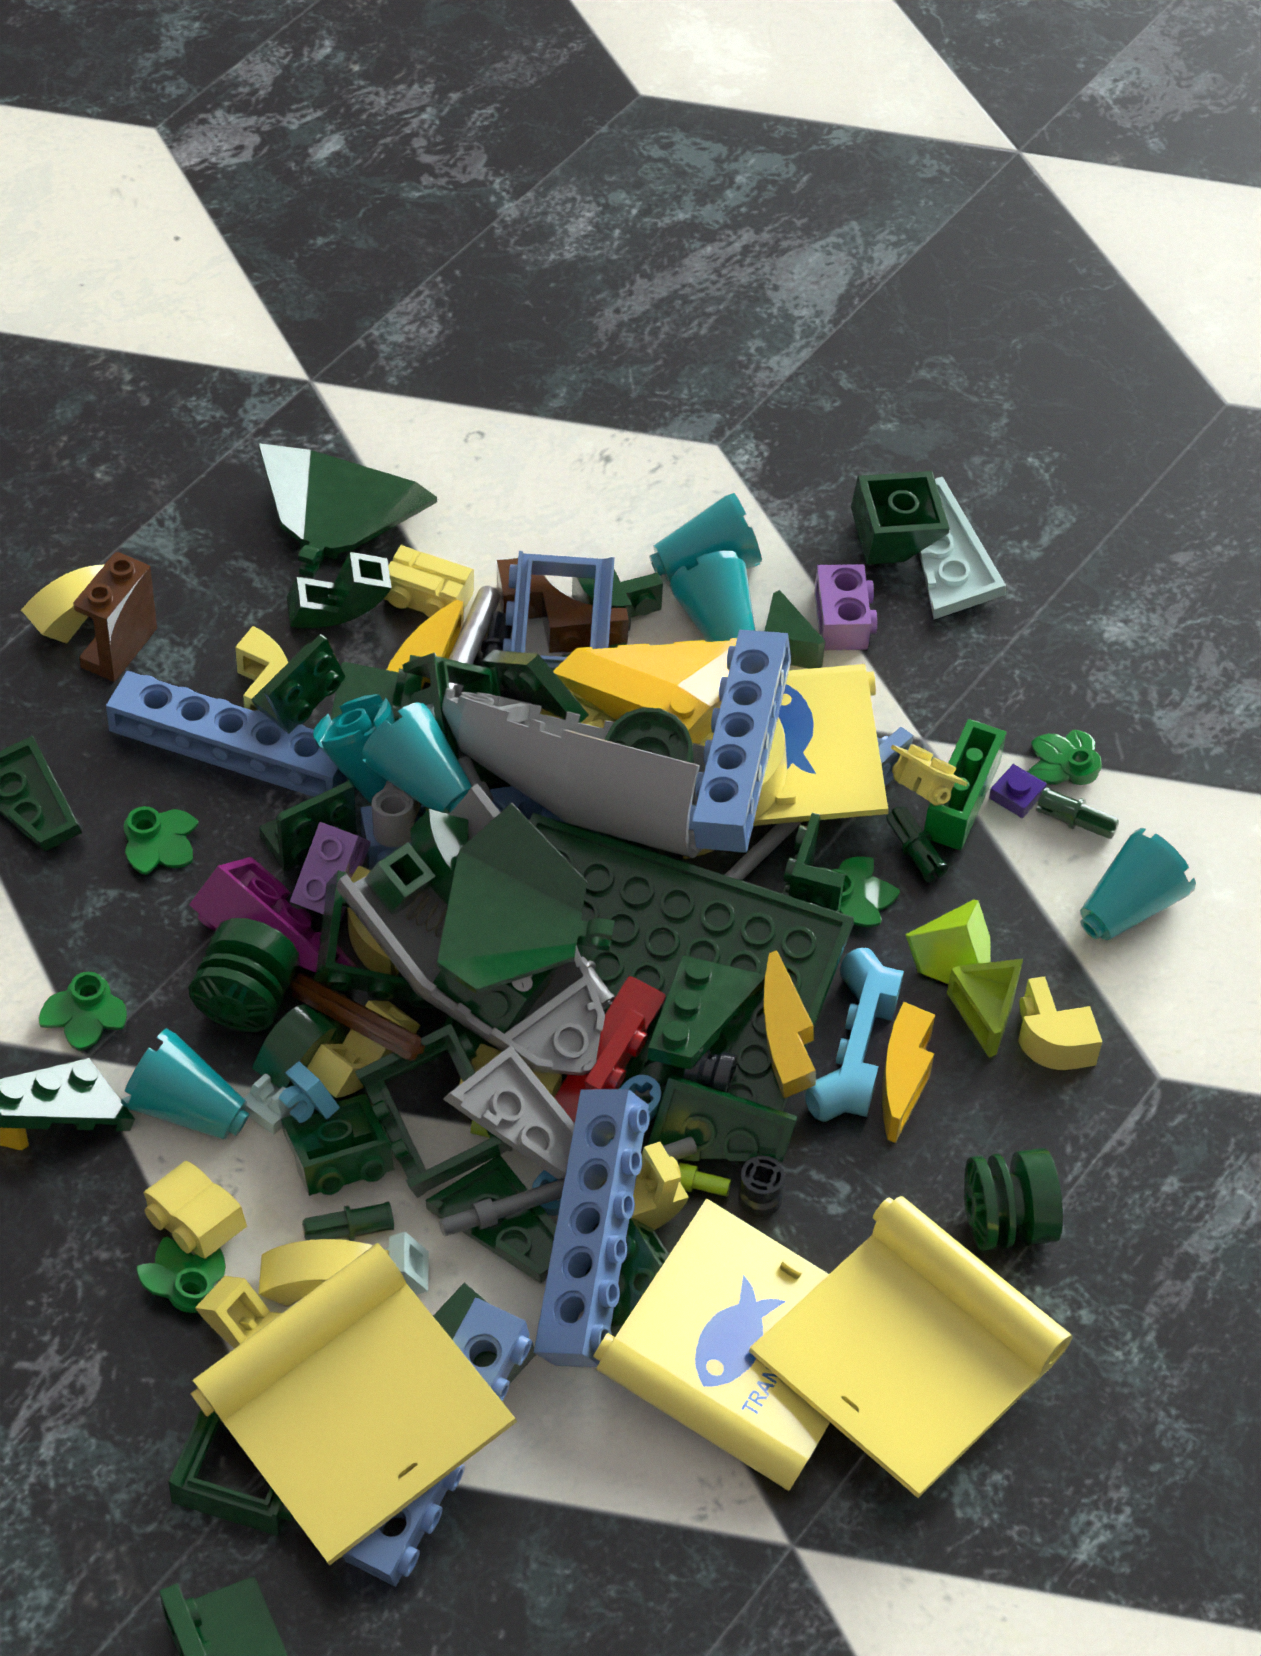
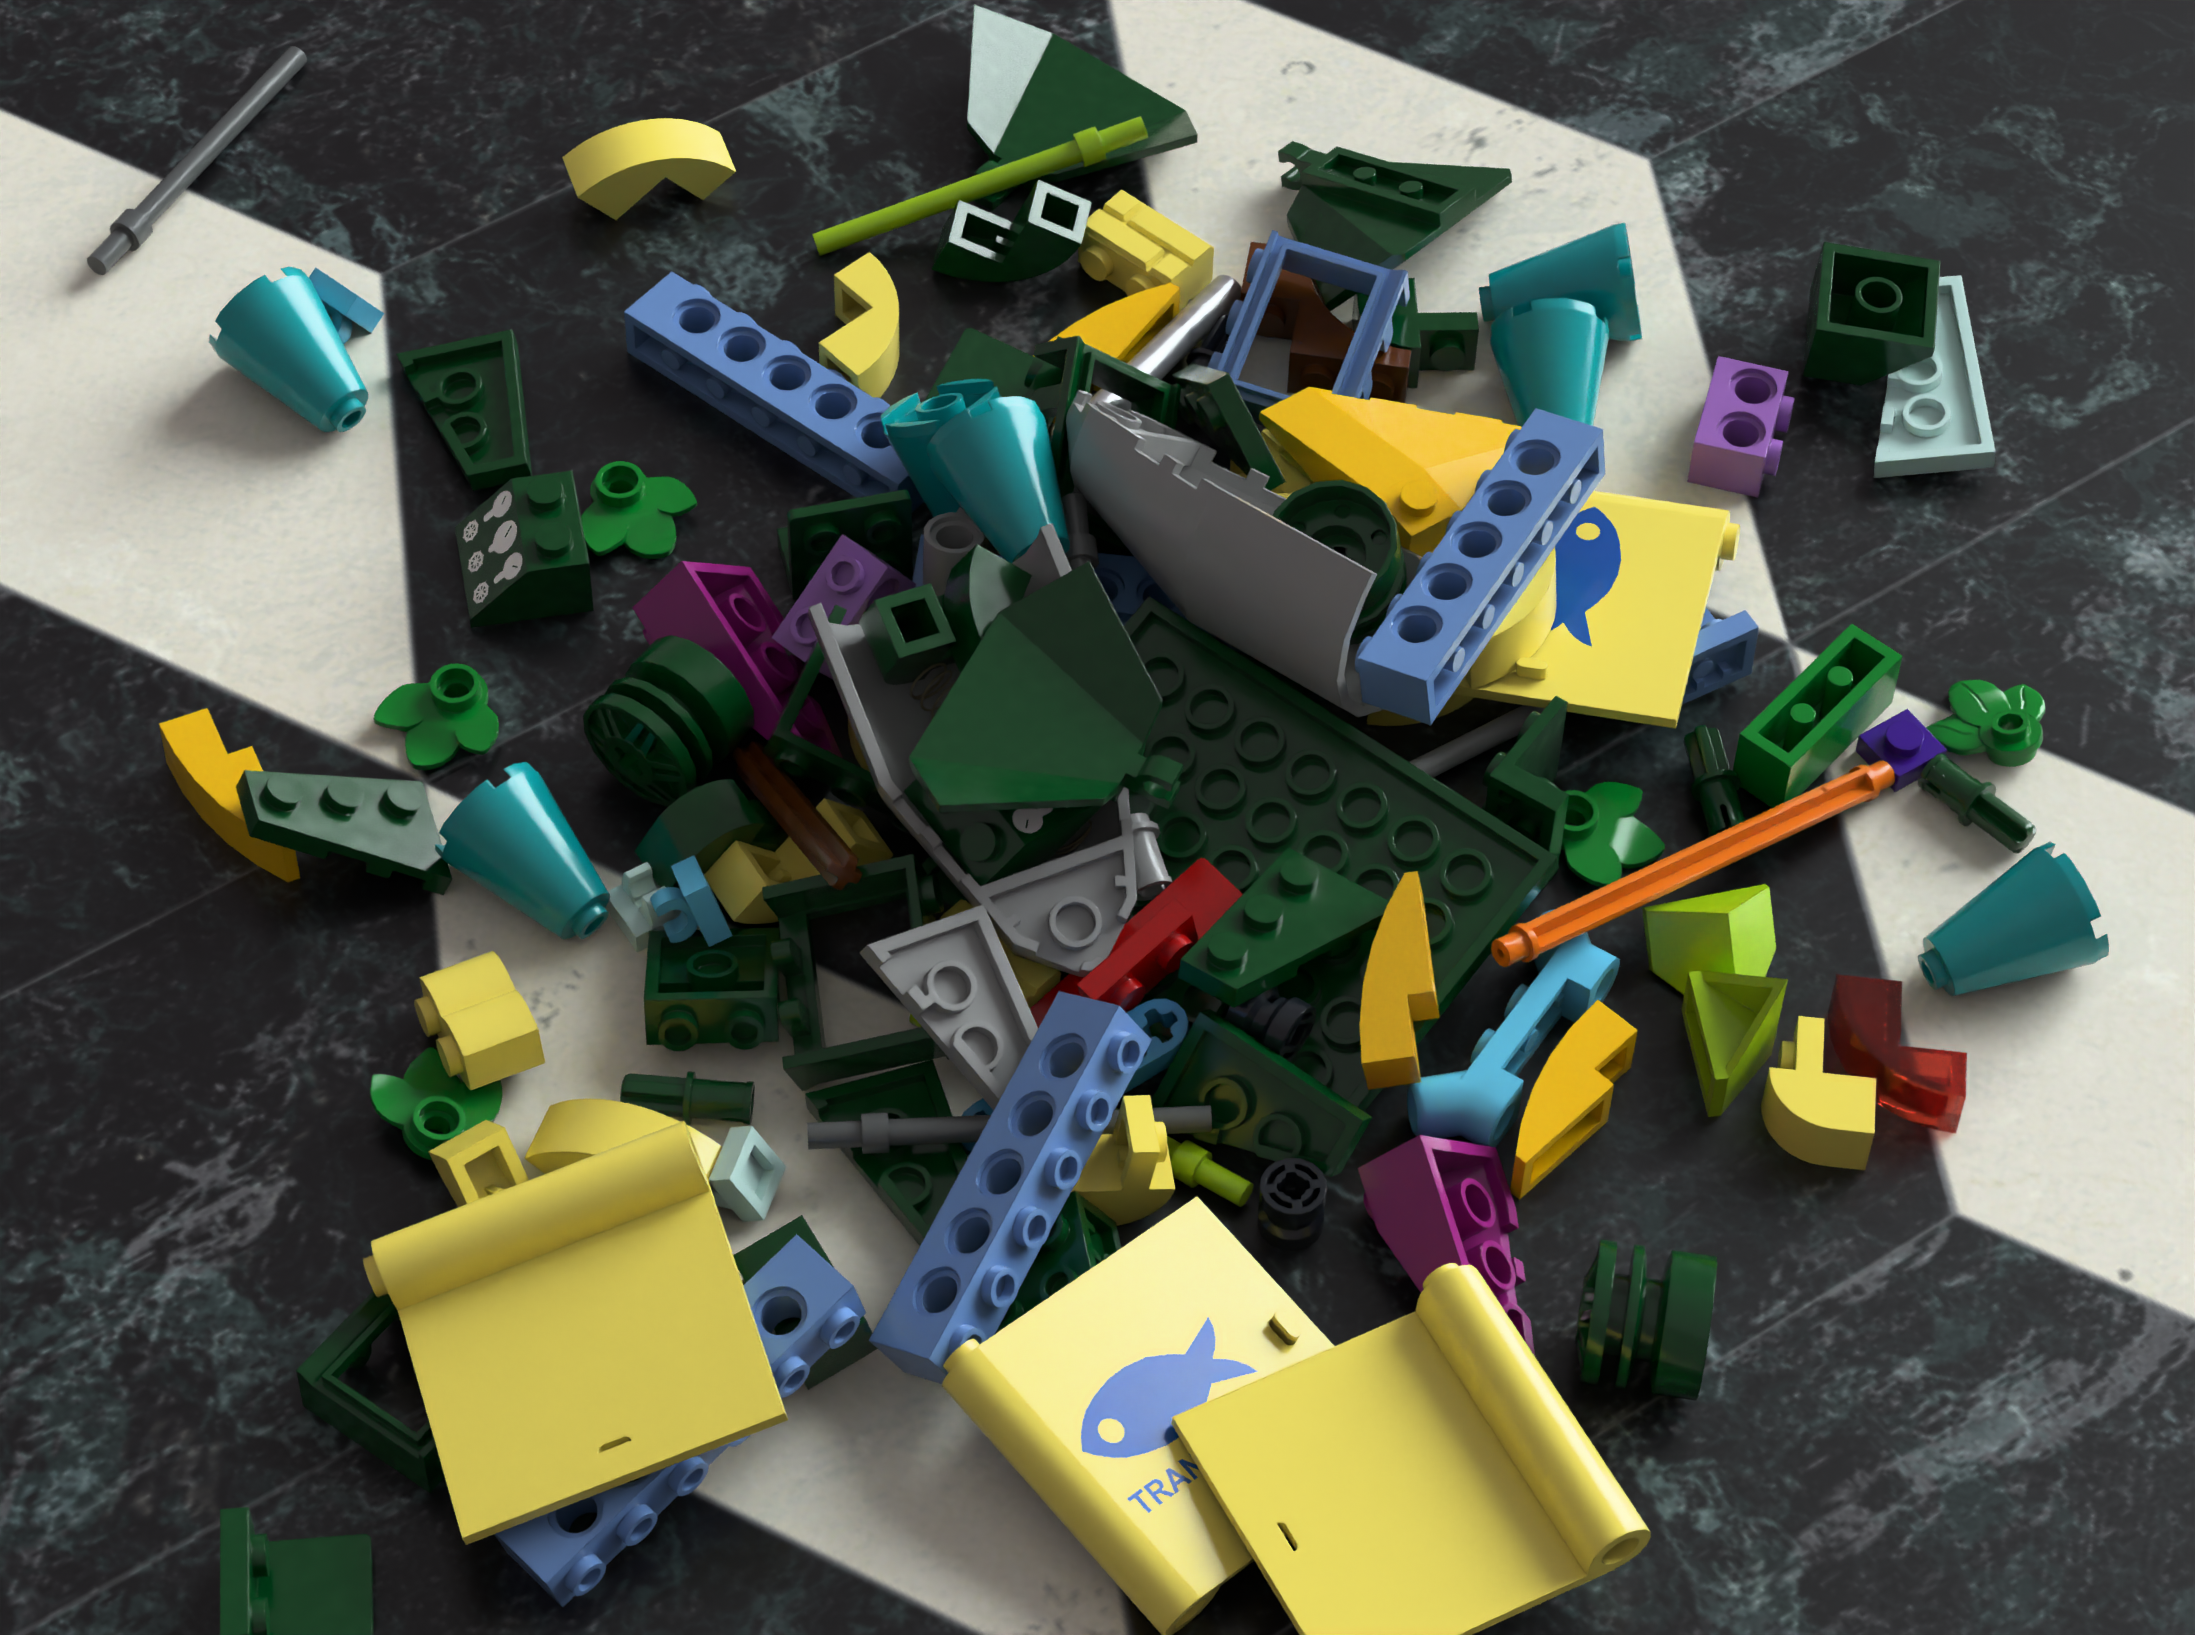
camera: 20 degrees right, 0 degrees up
(99, 884) = (525, 552): none -> dark green slope
(122, 612) = (688, 192): reddish brown panel -> none
(301, 685) = (893, 342): dark green bracket -> none
(368, 522) = (1087, 147): none -> lime bar
(567, 518) = (1377, 206): none -> dark green panel
(804, 641) = (1642, 448): dark green slope -> none
(857, 1166) = (1445, 1206): none -> magenta wedge
(925, 899) = (1575, 918): none -> orange piece
(926, 777) = (1753, 685): light yellow hinge -> none
(1073, 985) = (1910, 1081): none -> clear red brick

